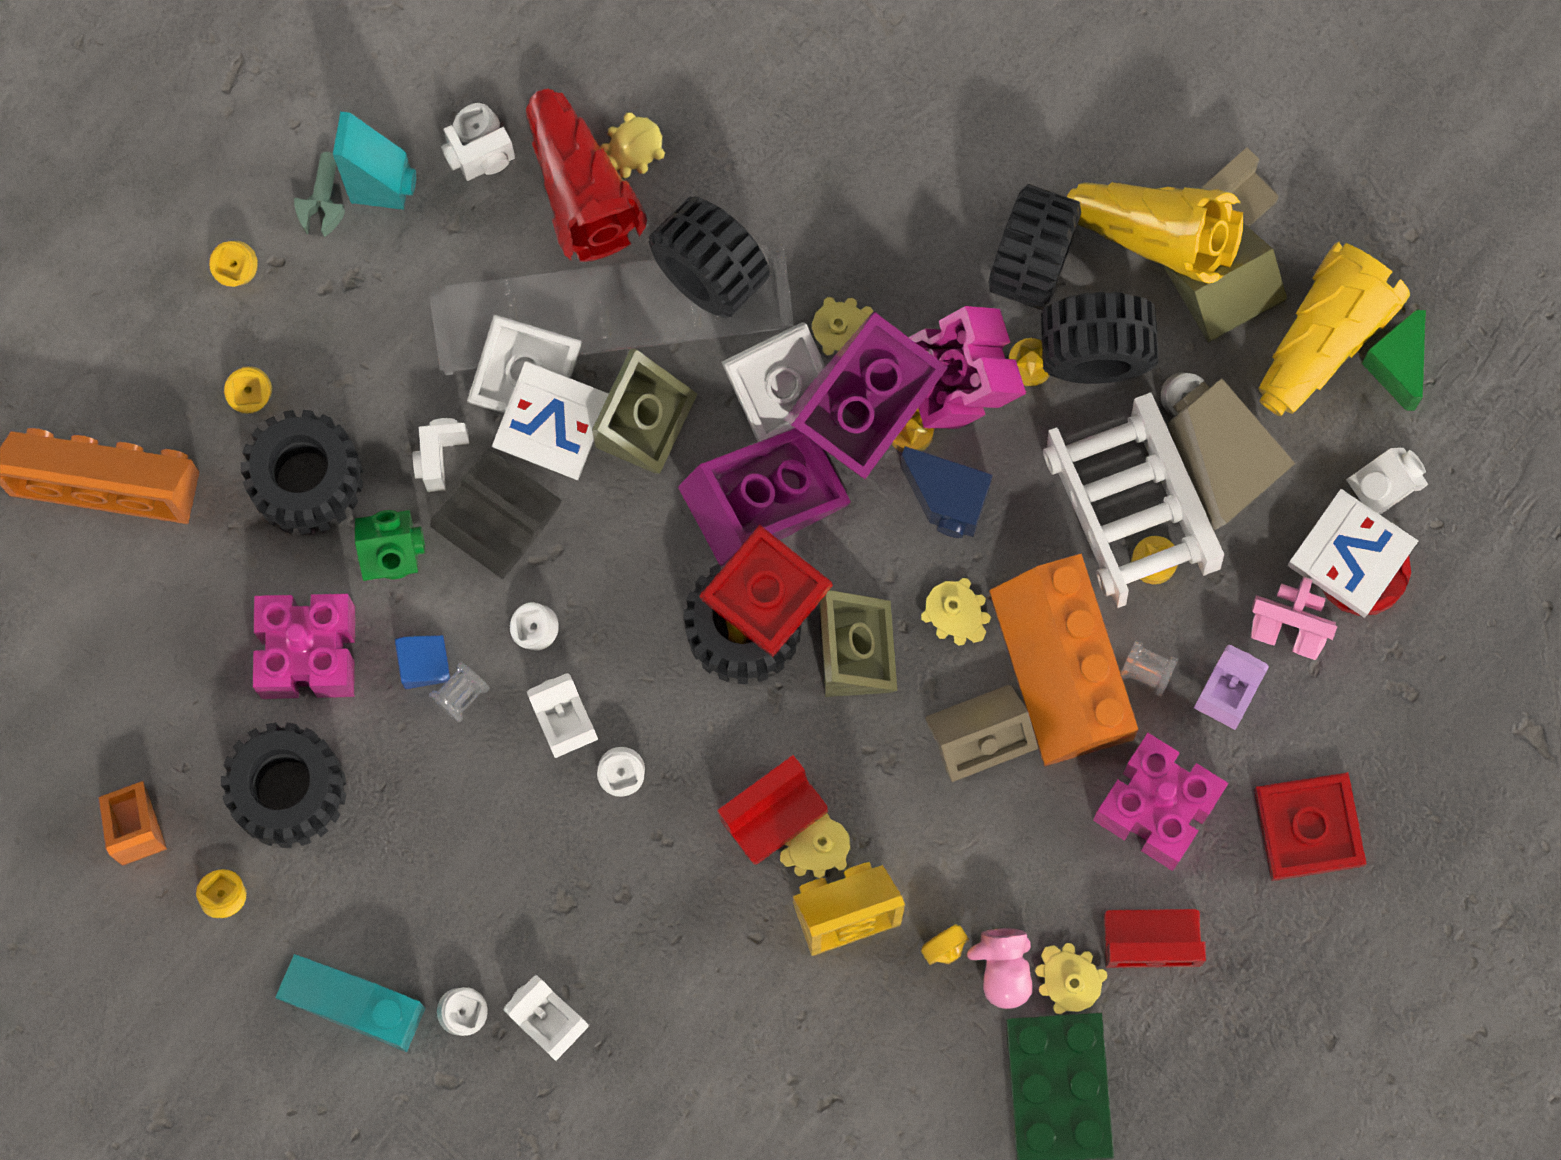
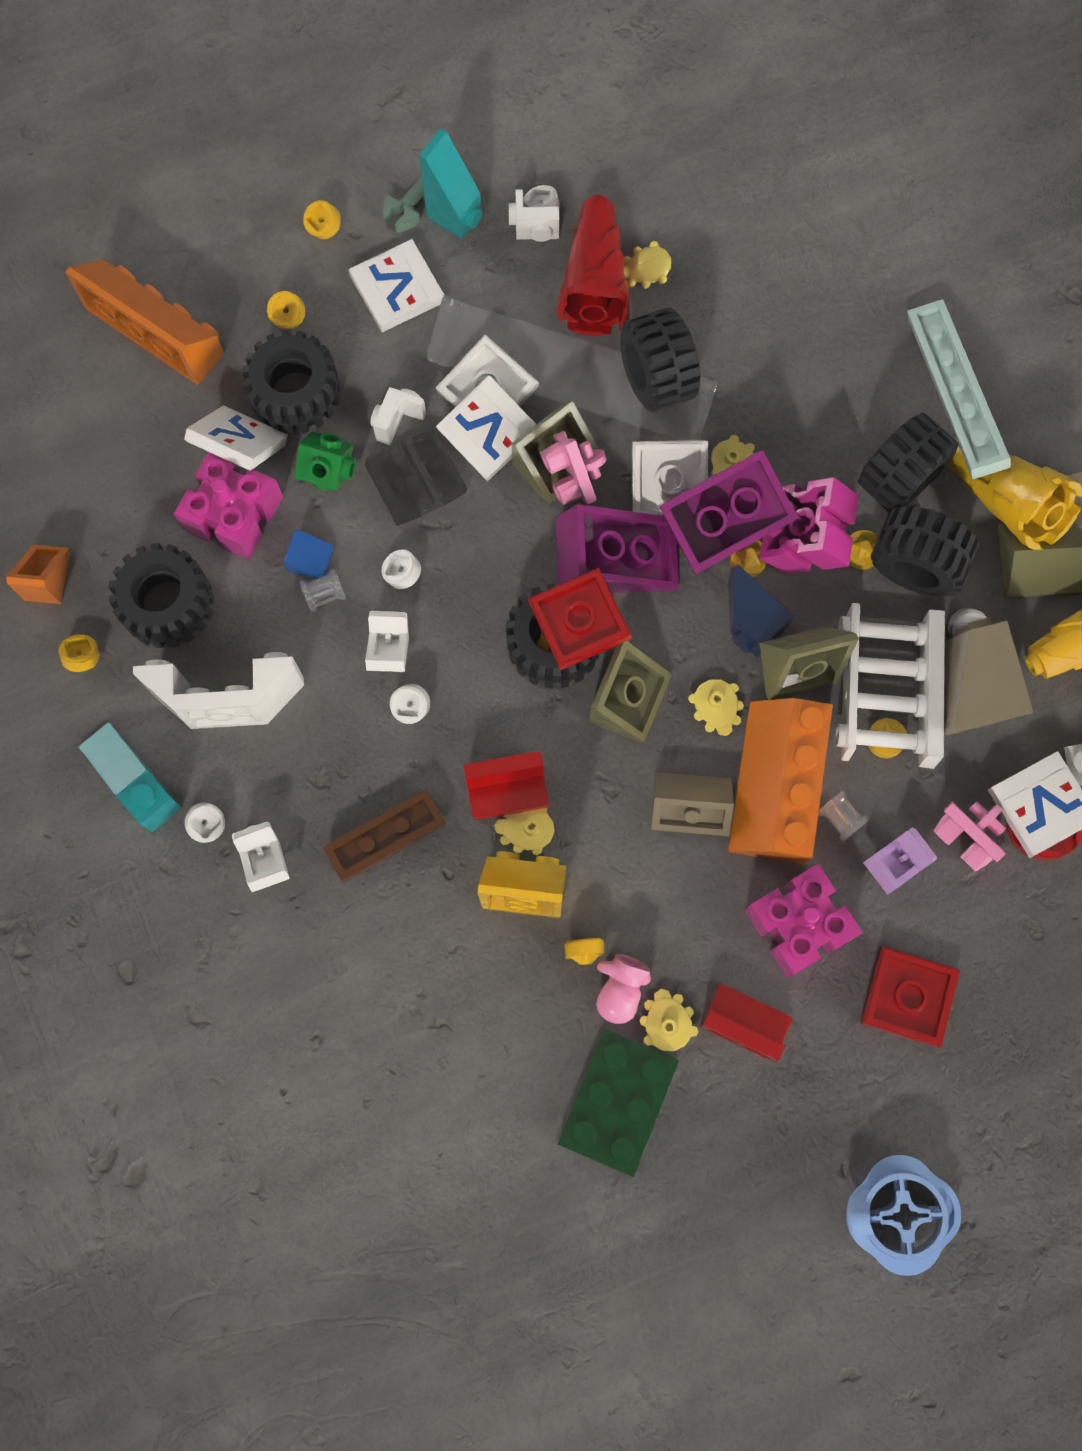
camera: 25 degrees right, 0 degrees up
(273, 566) = (236, 437): none -> white tile
(359, 300) = (396, 285): none -> white tile
(438, 864) = (274, 685): none -> white slope
(667, 929) = (384, 836): none -> reddish brown plate
(674, 417) = (567, 455): none -> bright pink hips
(1028, 518) = (805, 661): none -> olive slope
(1049, 136) = (958, 390): none -> light aqua plate
(1449, 1030) = (946, 1212): none -> light blue piece

